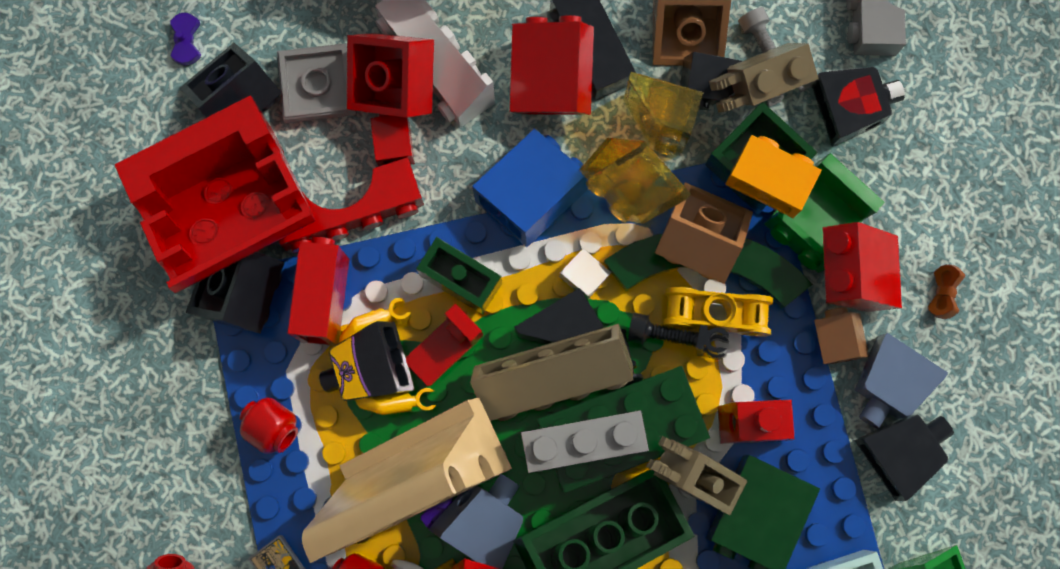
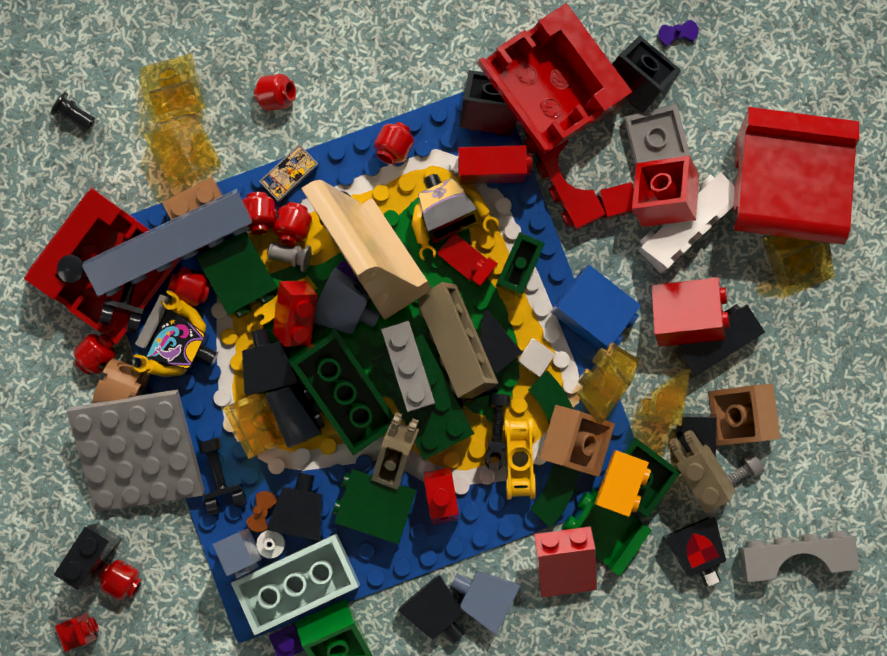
camera: 85 degrees right, 5 degrees up
(841, 336) = (513, 553): medium nougat brick -> none
(947, 280) = (569, 632): dark orange piece -> none

